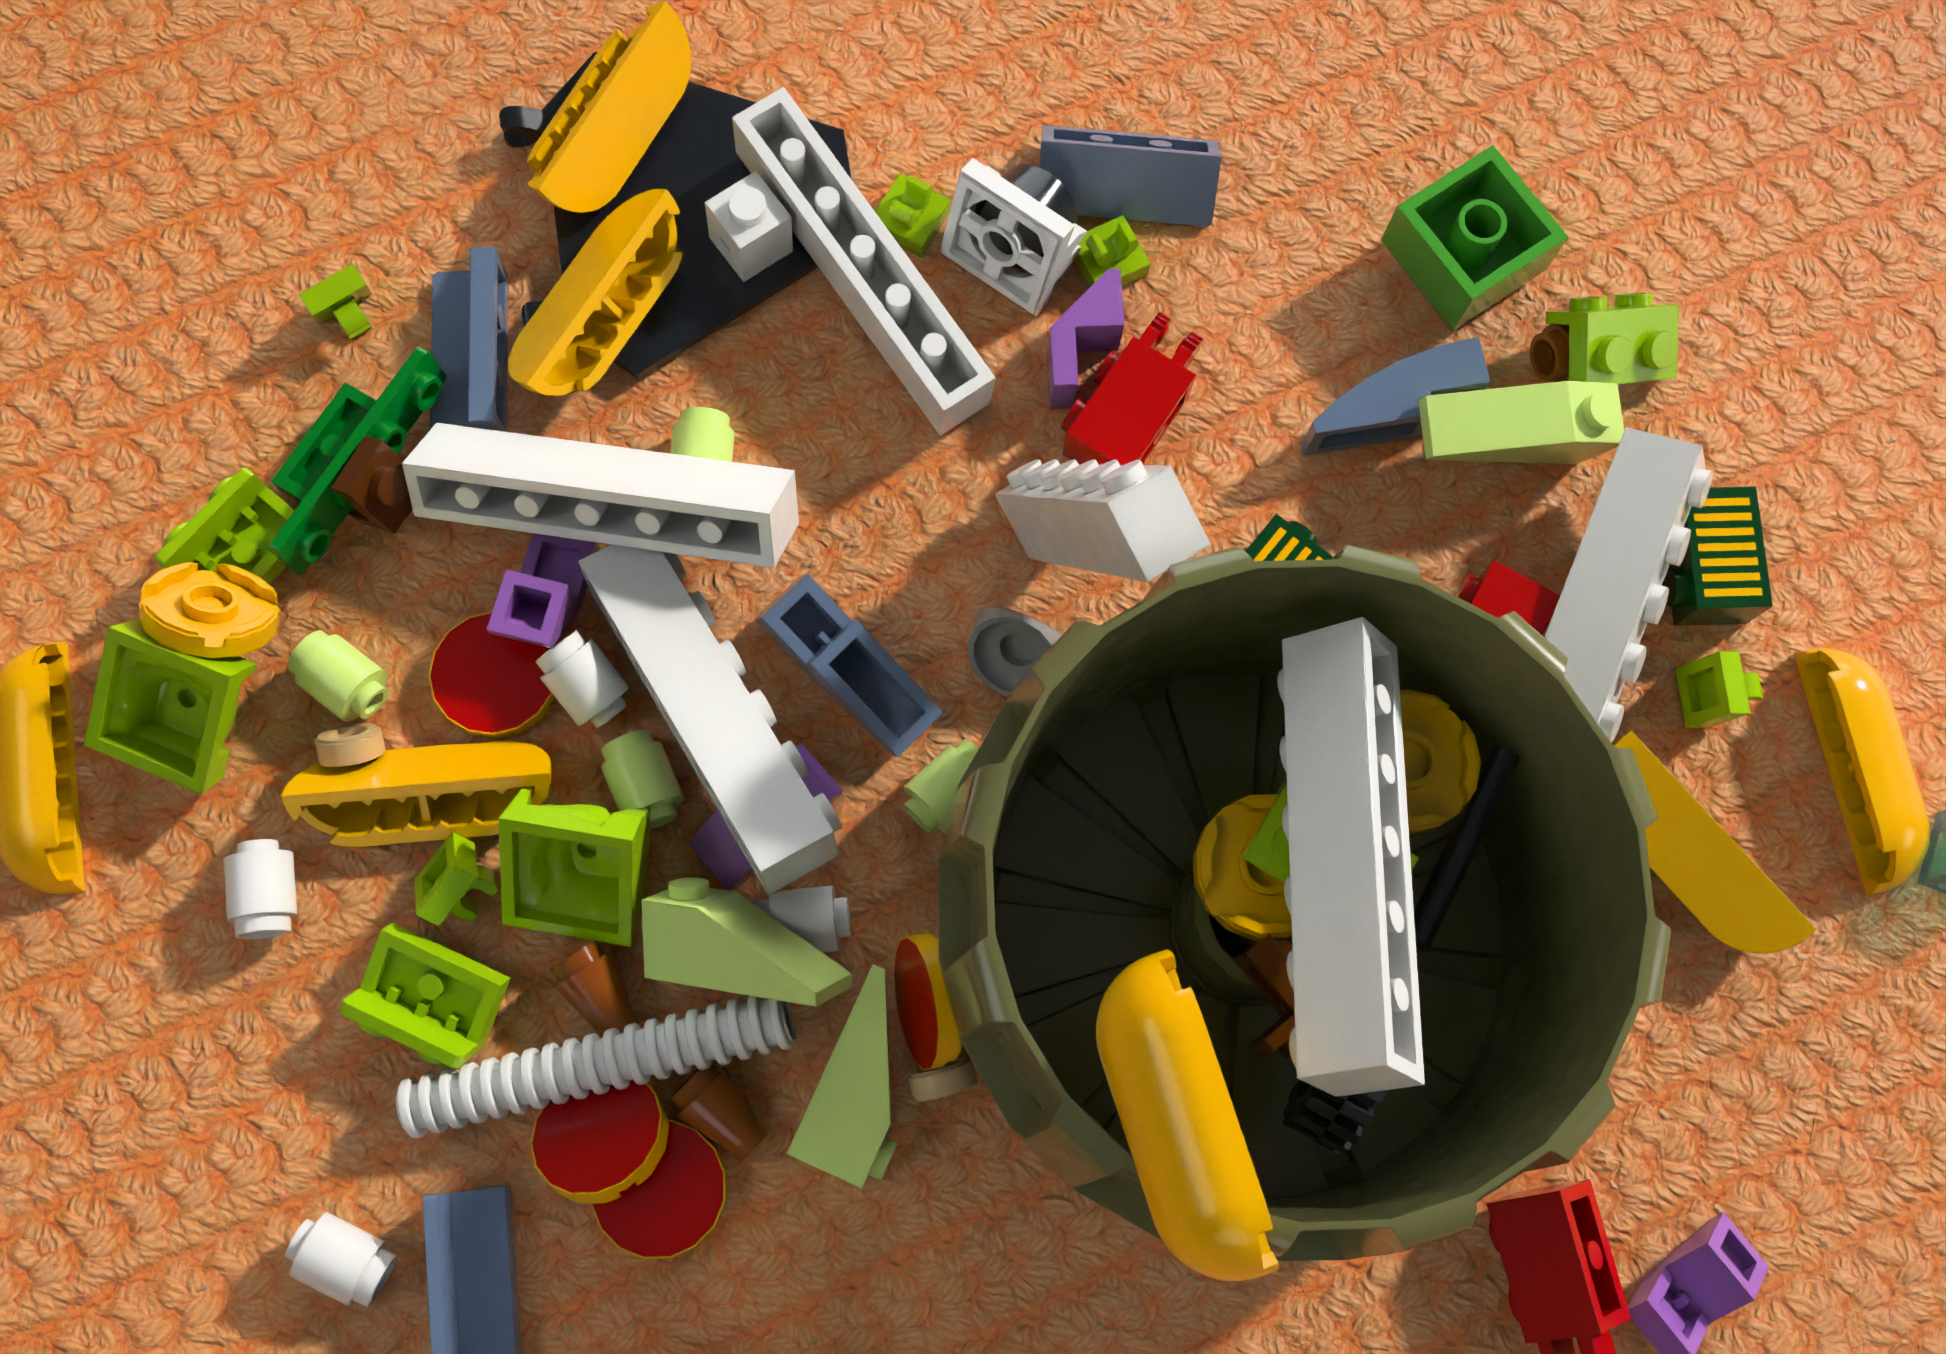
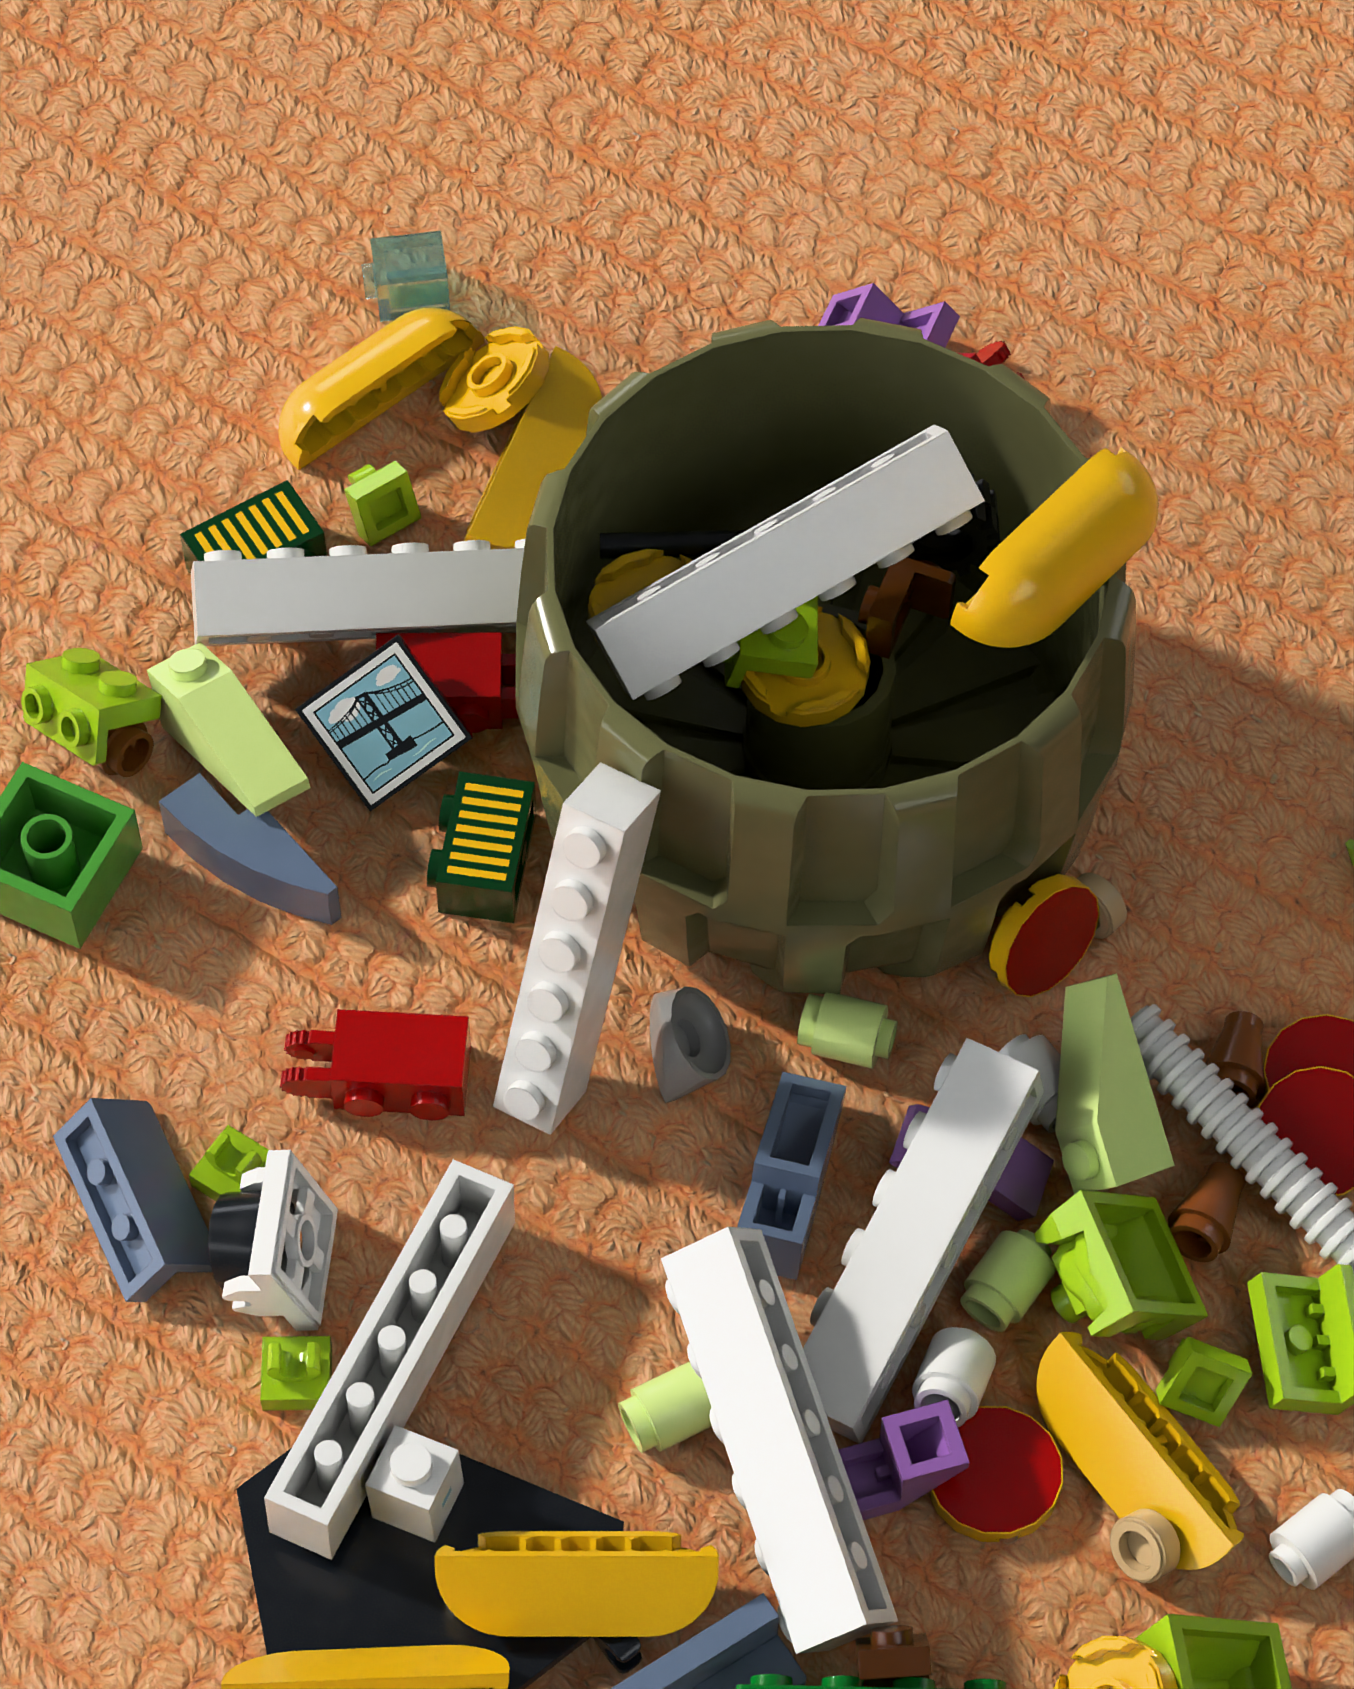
camera: 115 degrees left, 15 degrees down
(338, 676) = (1089, 1595): yellowish green brick -> none
(852, 1104) = (1163, 960): yellowish green slope -> none
(1088, 325) = (326, 1147): medium lavender slope -> none
(1472, 547) = (384, 722): none -> tile
(1807, 861) = (495, 381): none -> yellow tile

